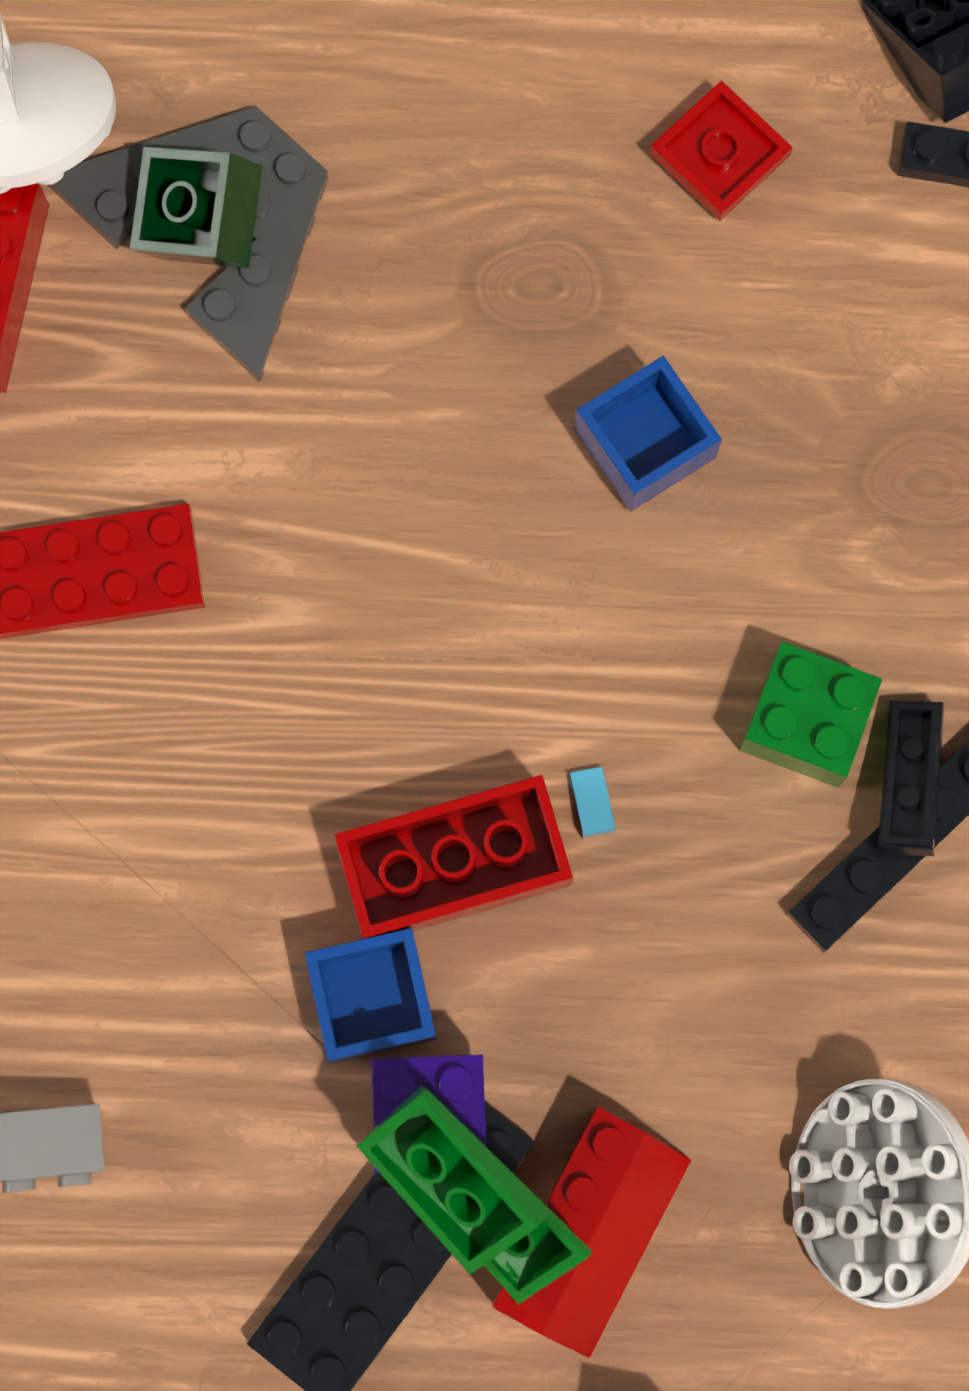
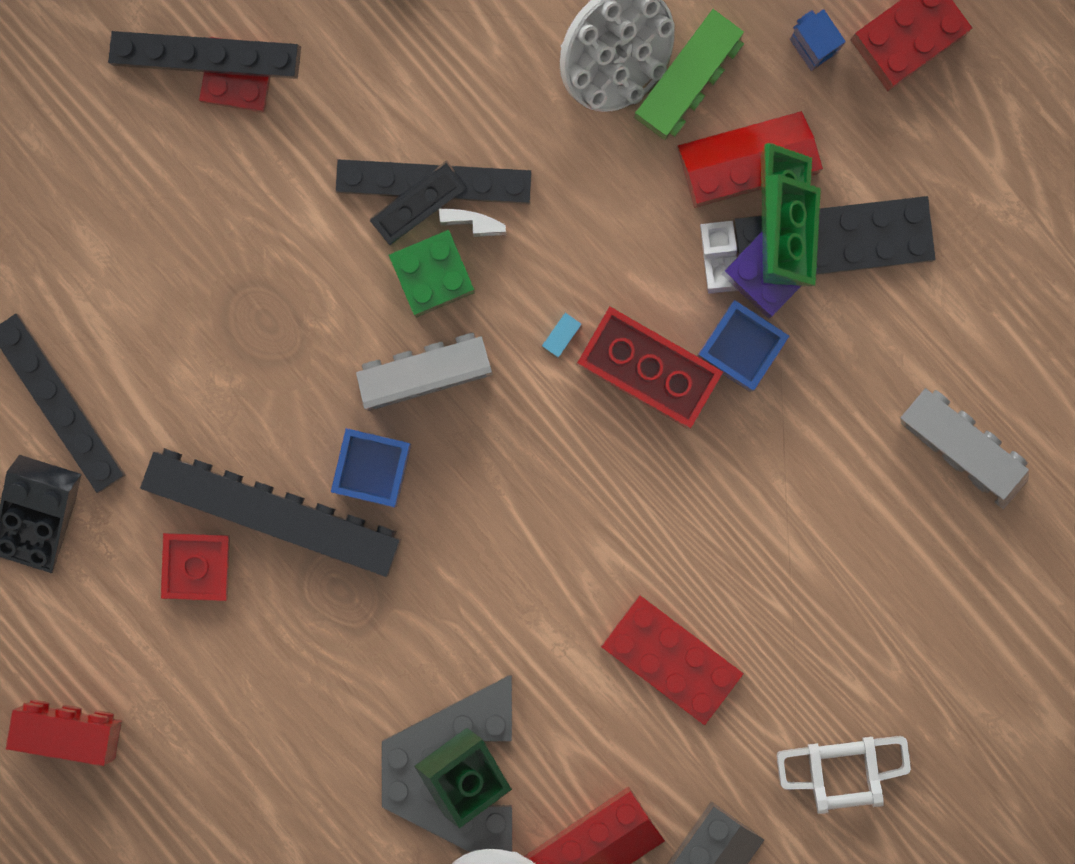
camera: 140 degrees left, 10 degrees up
(512, 1082) = (718, 253): none -> white slope
(699, 594) = (423, 373): none -> light grey slope
(701, 283) = (270, 513): none -> black brick
(766, 1259) = (689, 74): none -> bright green brick
(819, 826) = (481, 223): none -> white slope

